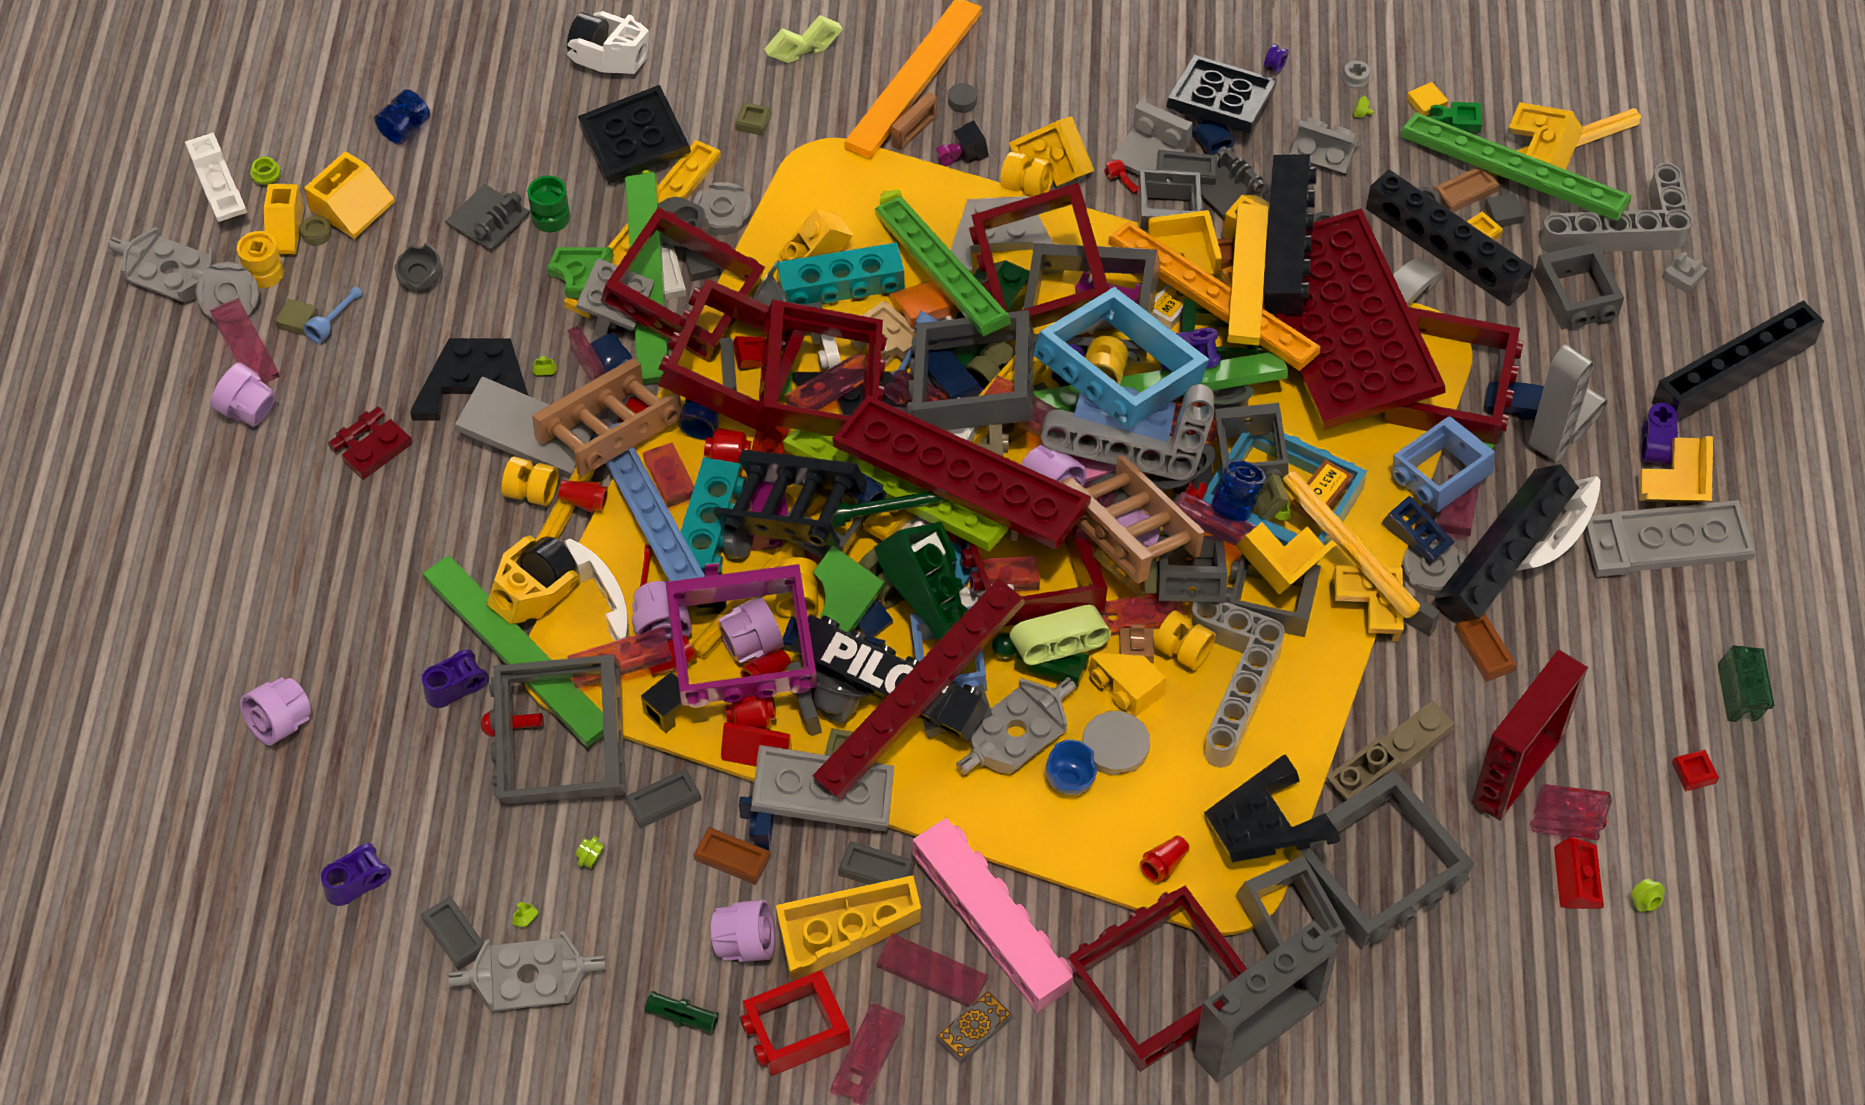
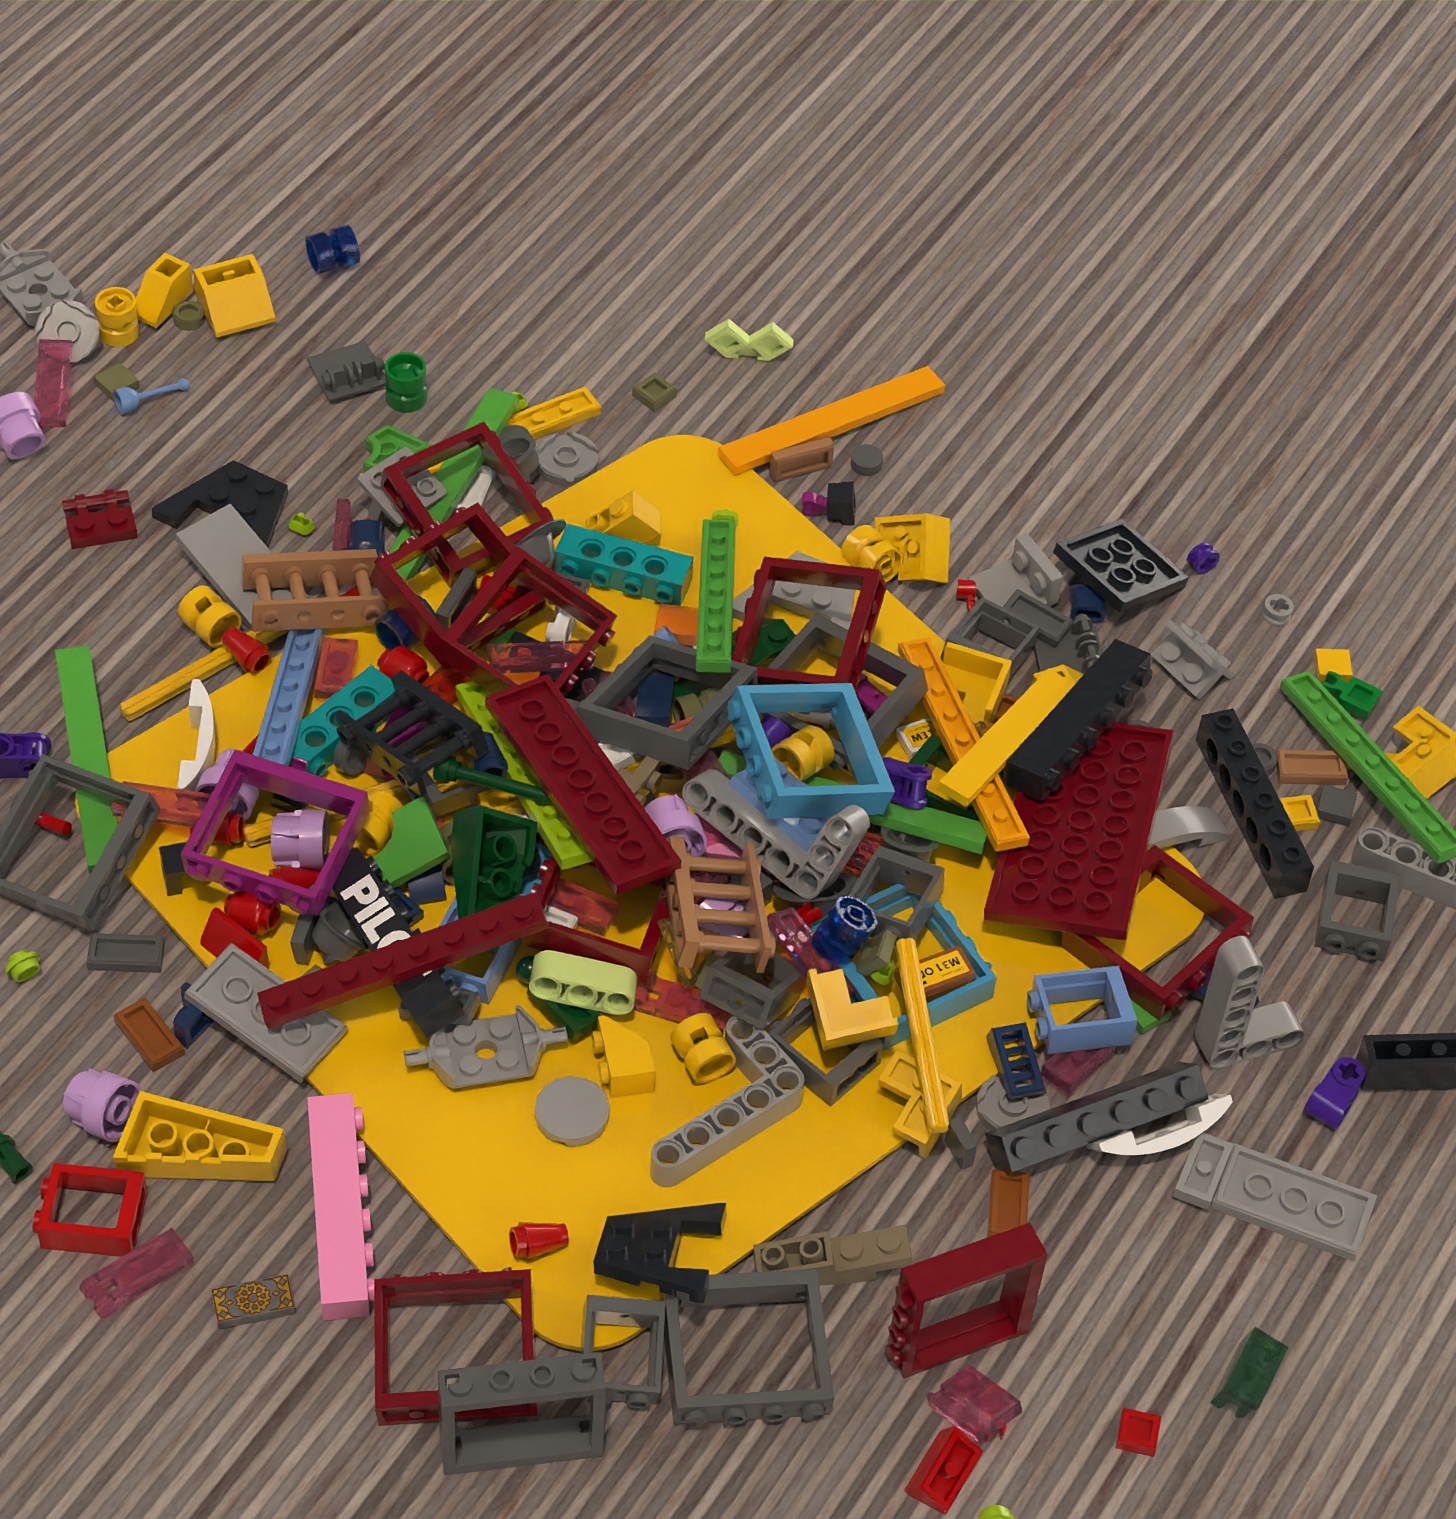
camera: 25 degrees right, 5 degrees down
(215, 177) = (134, 232): white slope -> none
(265, 171) = (181, 244): lime plate -> none
(418, 267) = (250, 386): dark grey hair -> none
(544, 578) = (118, 709): yellow piece -> none
(608, 42) = (563, 264): white piece -> none
(634, 134) = (530, 356): black plate -> none
(699, 266) = (504, 502): dark grey tile -> none
(873, 865) = (266, 1105): dark grey tile -> none
(895, 328) = (633, 627): tan plate -> none
(931, 970) = (252, 1230): clear pink tile -> none
(1071, 767) = (507, 1109): blue hair -> none
(1137, 641) = (657, 1030): medium nougat tile -> none
(1361, 108) = (1259, 643): lime rock -> none
(1687, 479) = (1330, 1148): yellow panel -> none

